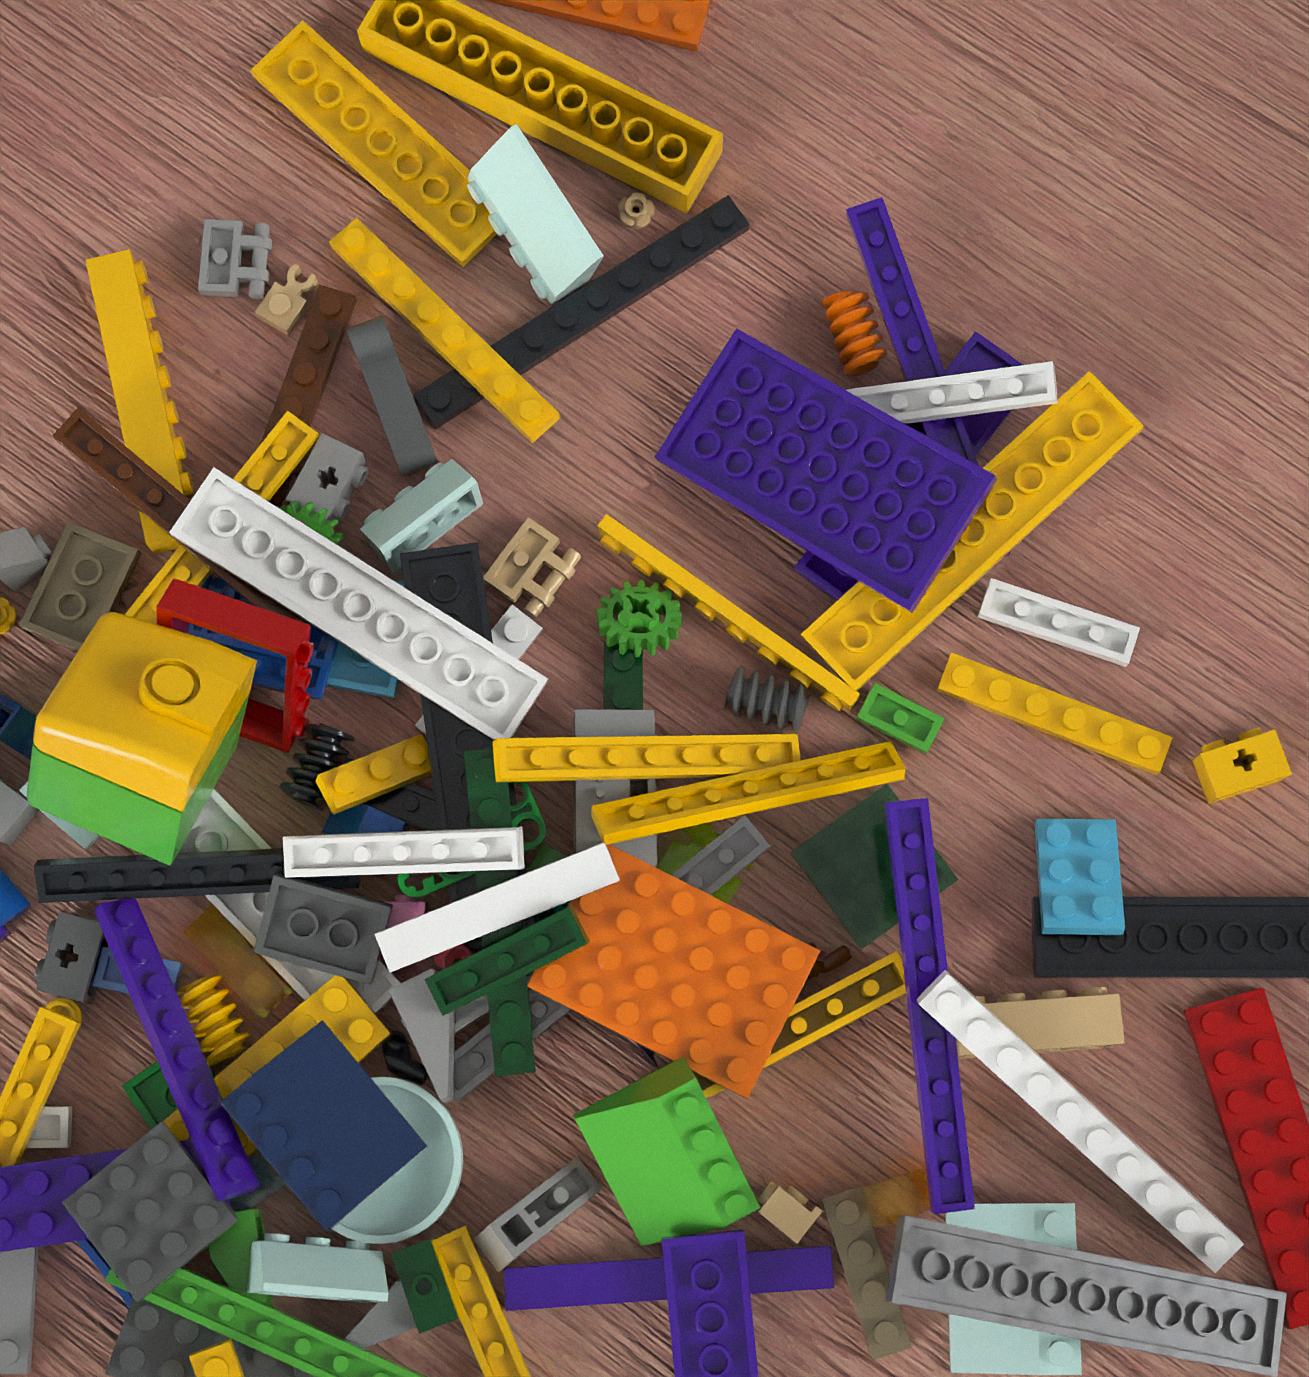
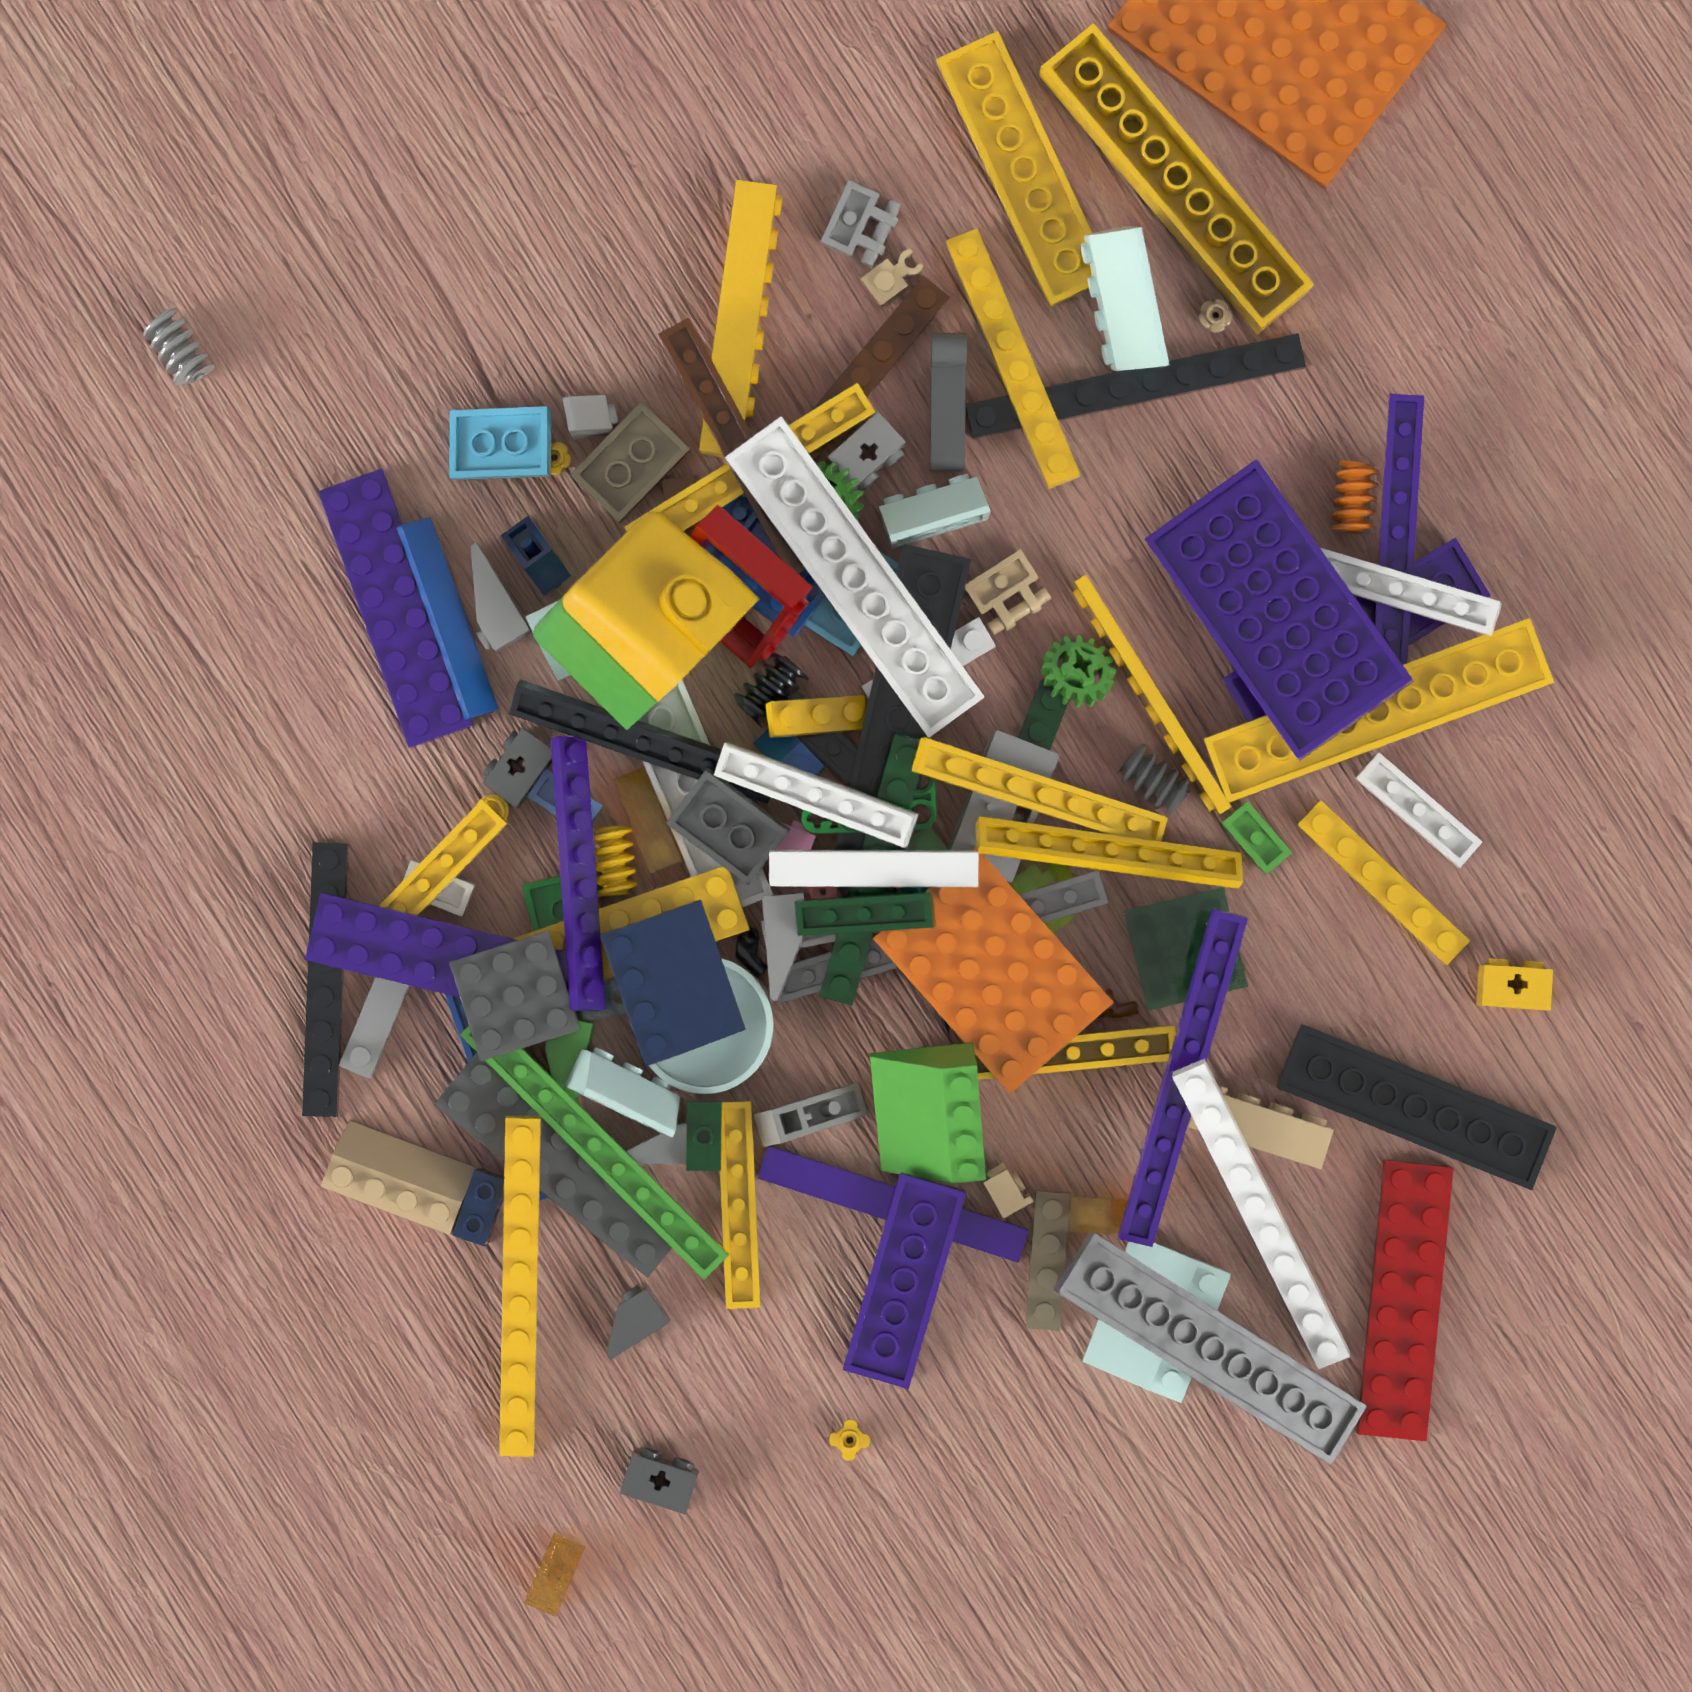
camera: 20 degrees right, 10 degrees up
(1079, 877) = (1345, 1022): medium azure plate -> none

